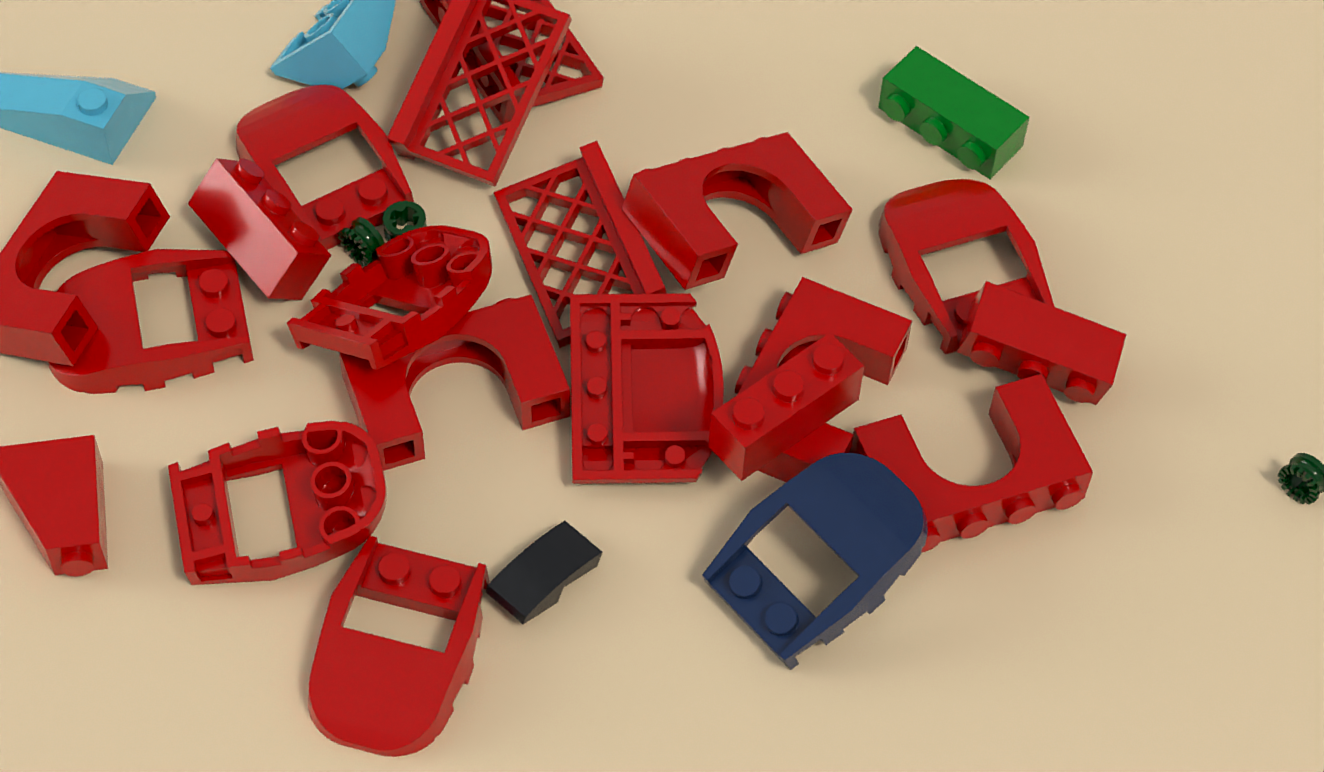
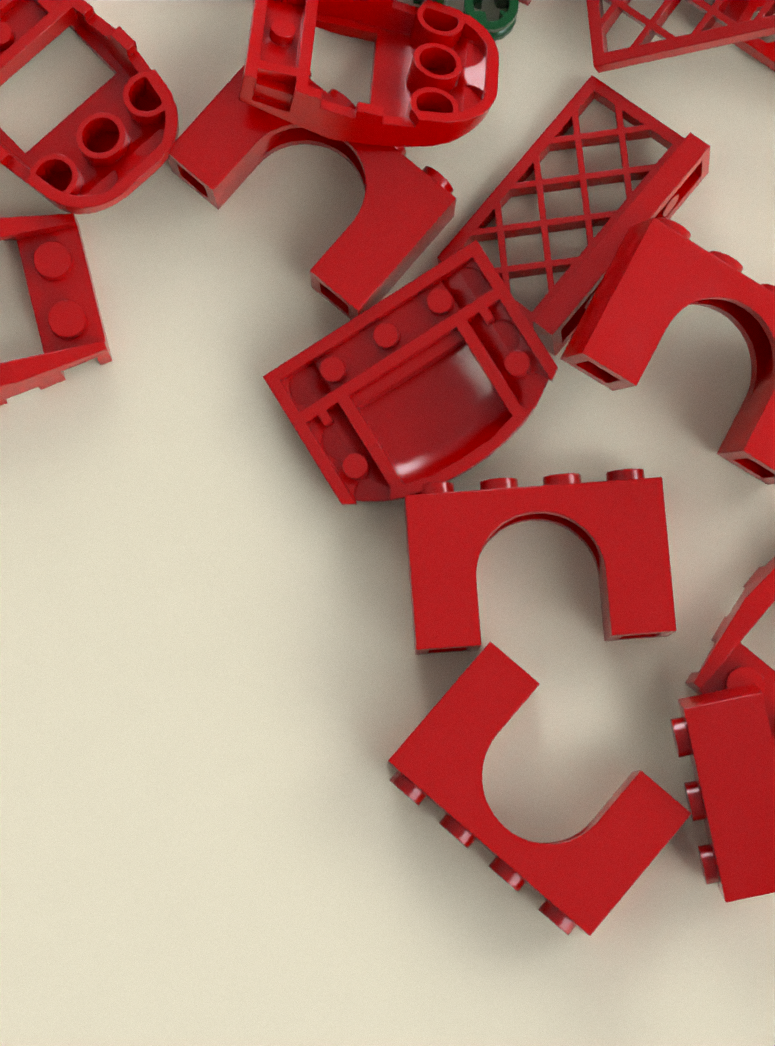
camera: 60 degrees right, 25 degrees up
(542, 570) = (141, 411): black slope -> none
(785, 406) = (452, 556): red brick -> none
(859, 515) = (369, 705): dark blue slope -> none

